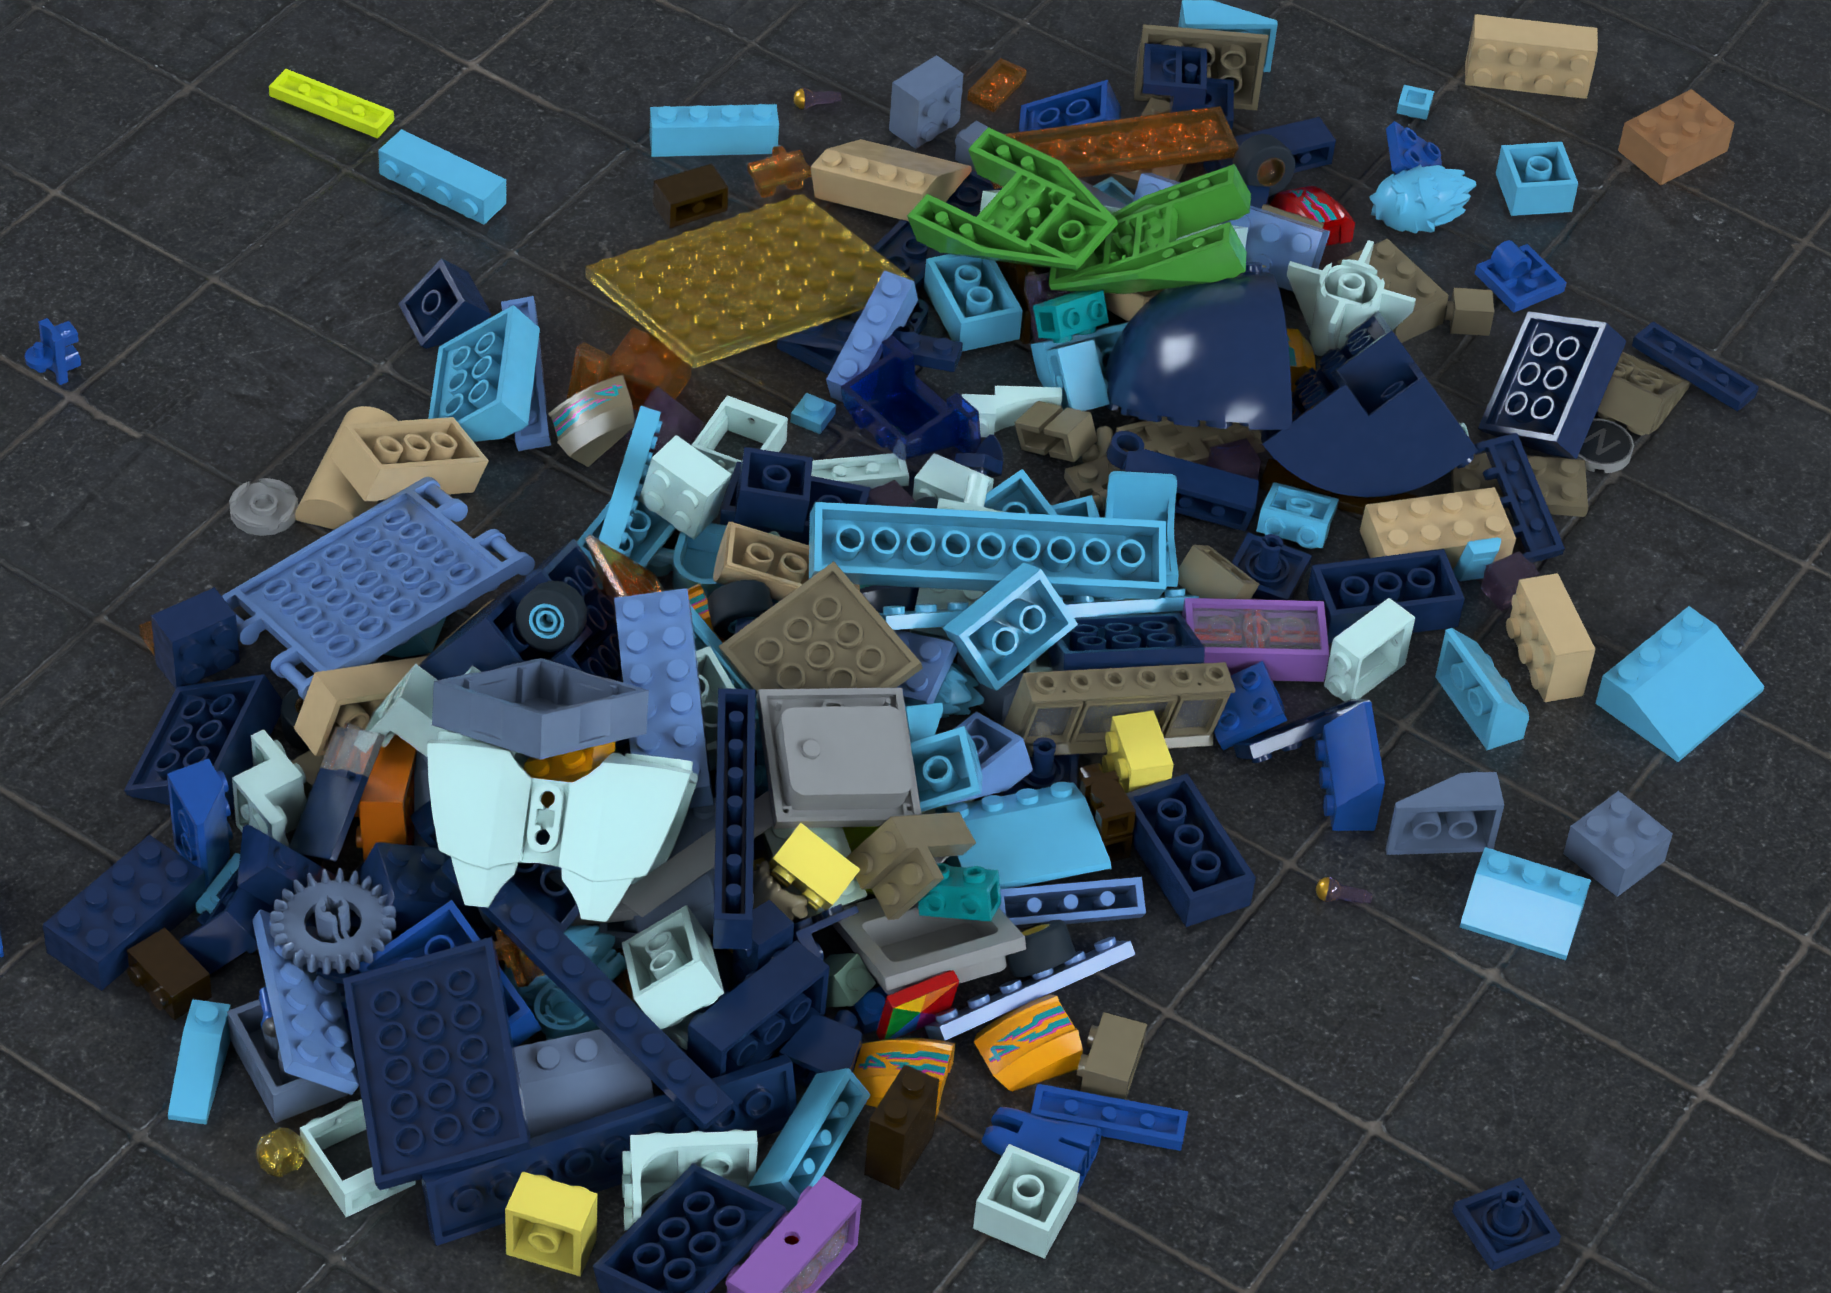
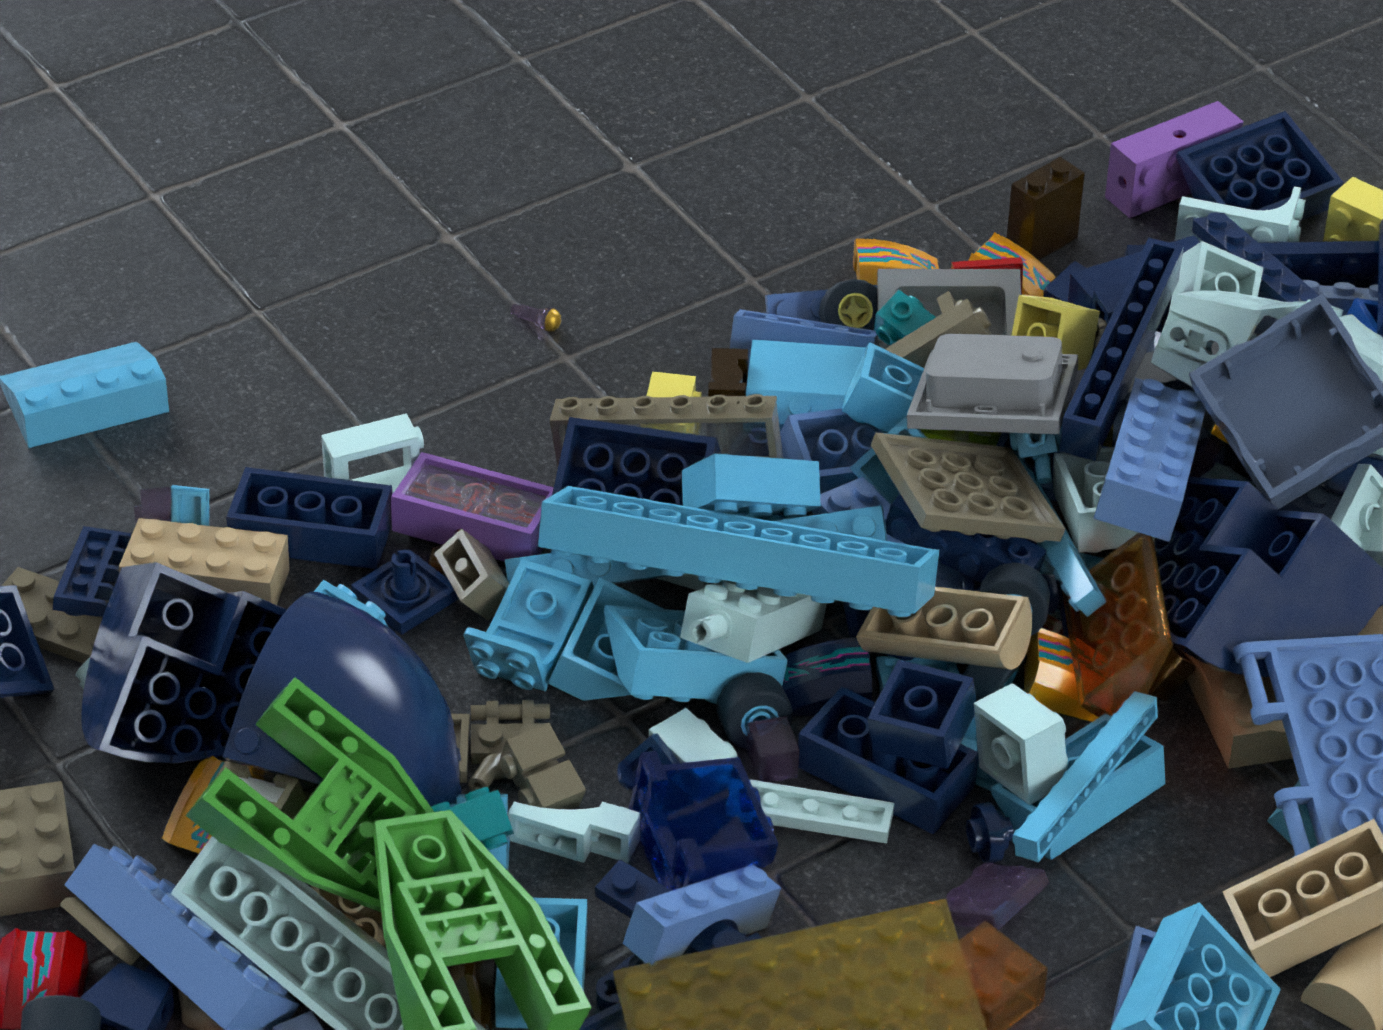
camera: 155 degrees left, 5 degrees down
(562, 607) = (1246, 529): black wheel -> none
(588, 368) = (1066, 968): clear orange plate -> none
(593, 420) = (1080, 923): dark tan slope -> none
(735, 417) = (883, 890): light aqua window -> none
(810, 1137) = (1150, 218): medium azure brick -> none
(813, 413) = (802, 902): medium azure plate -> none
(1026, 1201) = (960, 159): light aqua brick -> none
(1054, 1140) = (918, 198): blue piece -> none
(1112, 1057) = (825, 241): dark tan brick -> none
(1115, 1116) = (854, 209): blue plate -> none
(1189, 851) = (665, 339): dark blue brick -> none
(1201, 489) = (469, 681): dark blue hinge -> none
(1251, 708) = (521, 456): blue plate -> none
(1291, 734) = (487, 437): dark blue plate -> none
(1343, 298) = (117, 787): light aqua brick -> none
(1351, 770) = (464, 378): blue slope -> none
(1448, 817) = (409, 314): sand blue slope -> none
(1480, 691) = (282, 415): medium azure slope -> none
(1506, 1223) = (576, 73): dark blue plate -> none
(1525, 903) = (380, 262): medium azure slope -> none
(1550, 638) = (183, 428): tan brick -> none
(1617, 843) = (264, 276): sand blue brick -> none

